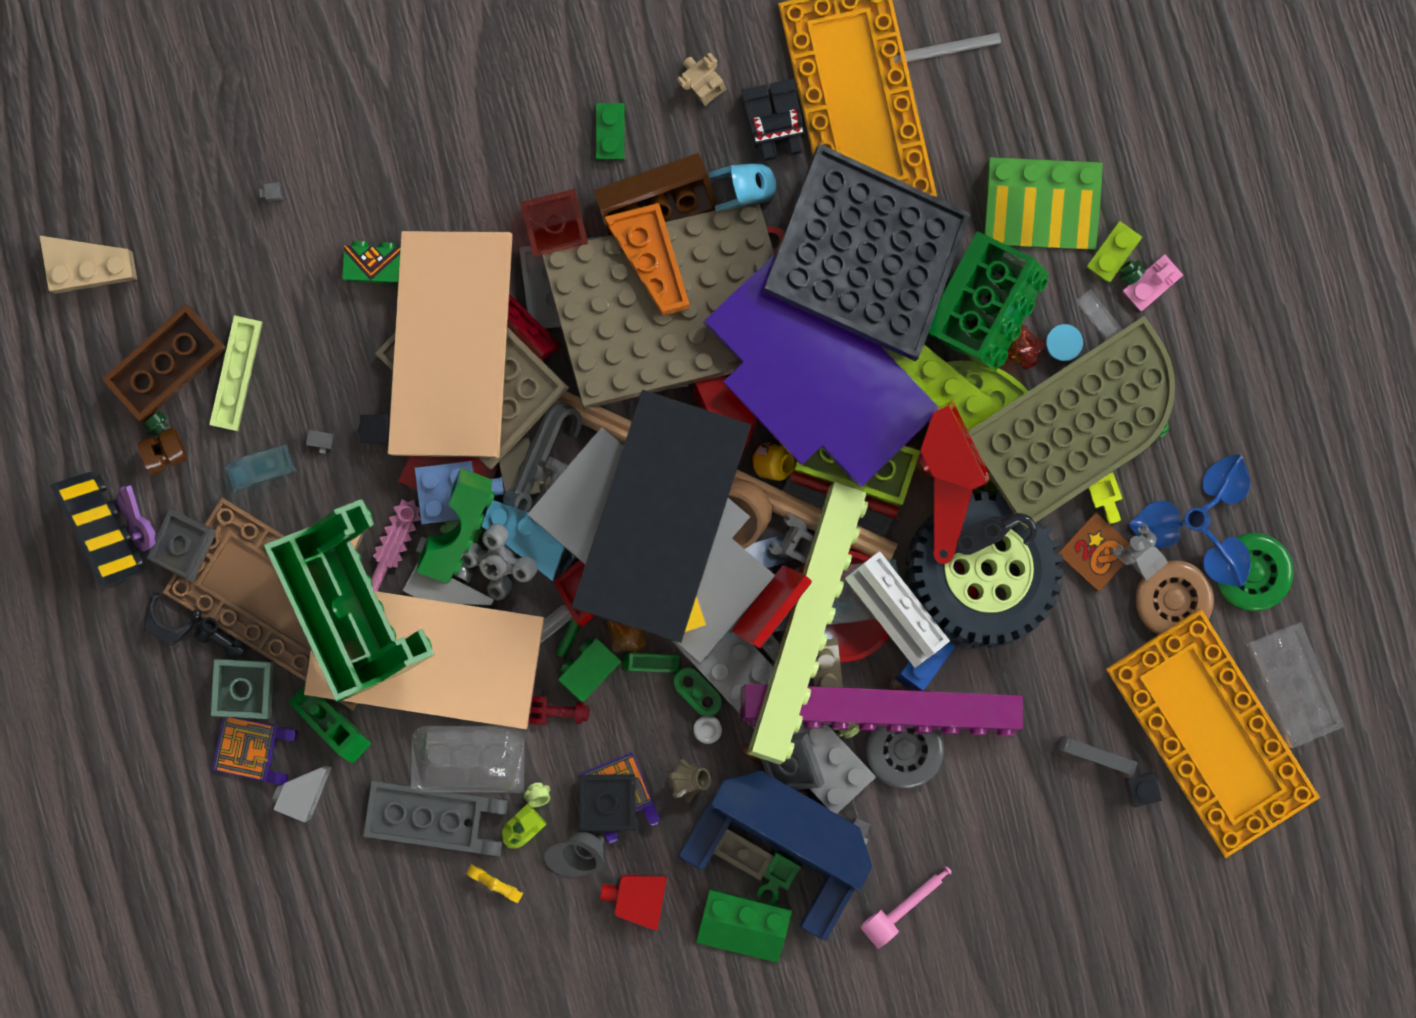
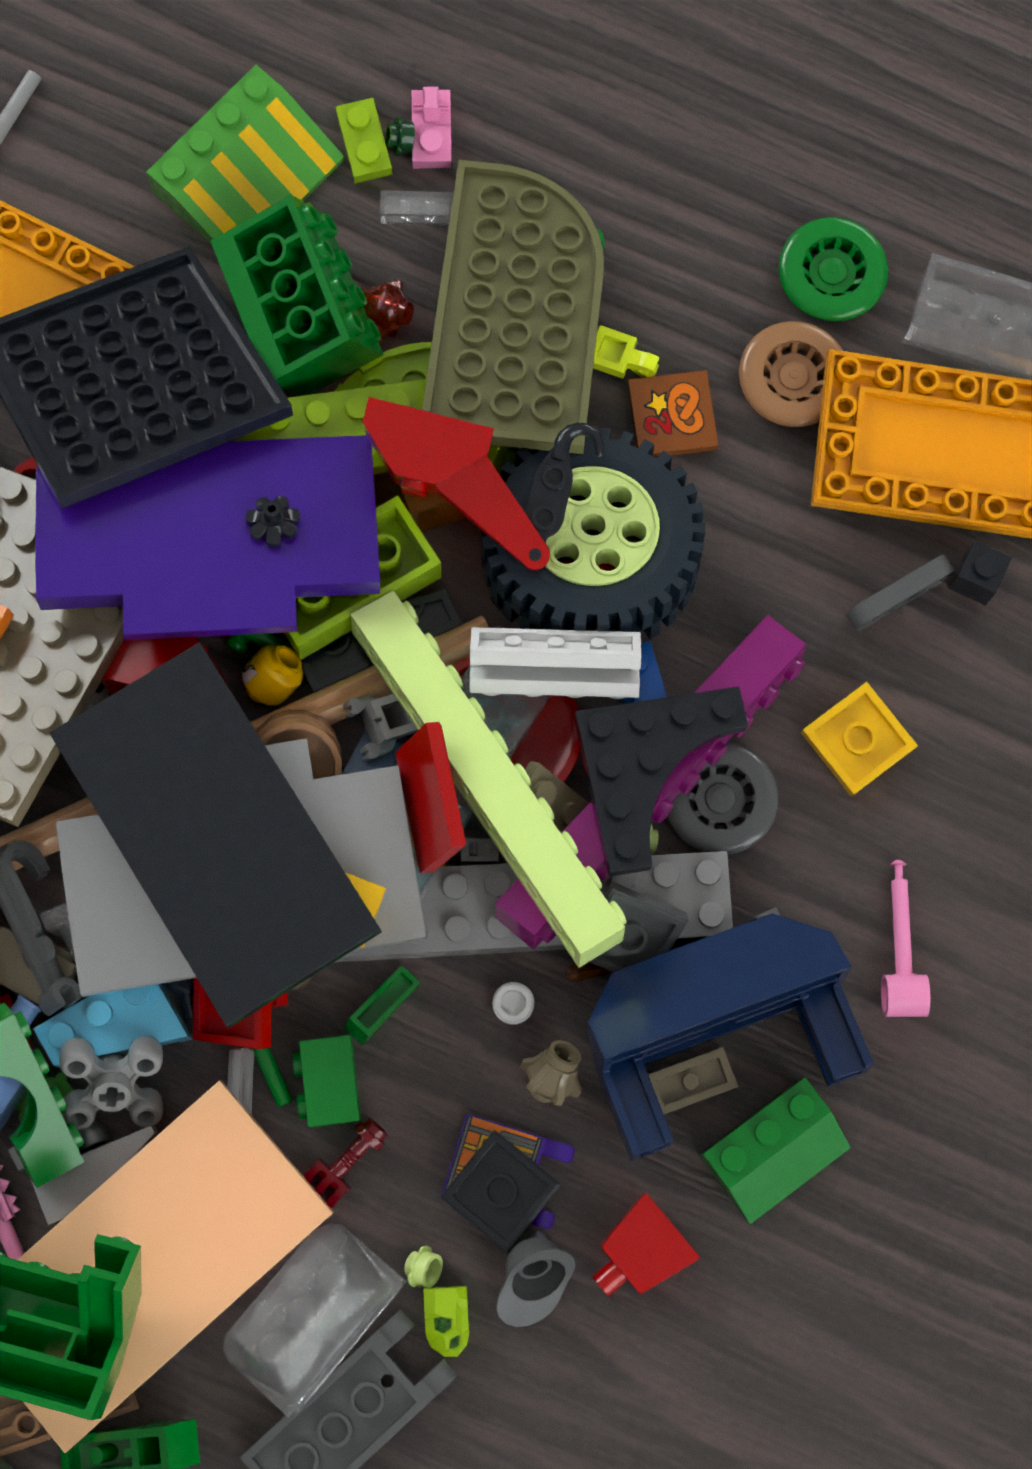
camera: 55 degrees left, 10 degrees down
(494, 884) = (485, 1410): yellow arm -> none
(626, 637) = (324, 1001): clear orange rock -> none
(696, 693) = (460, 977): green plate -> none
(780, 874) = (748, 1057): green plate -> none
(823, 487) = (349, 642): red piece -> none
(847, 403) = (272, 521): none -> black plant
(881, 689) = (633, 752): none -> black plate
(997, 797) = (859, 739): none -> yellow plate
(1064, 343) = (415, 264): medium azure piece -> none
(1142, 553) = (718, 364): light grey piece -> none
(1226, 562) = (708, 220): blue plant -> none

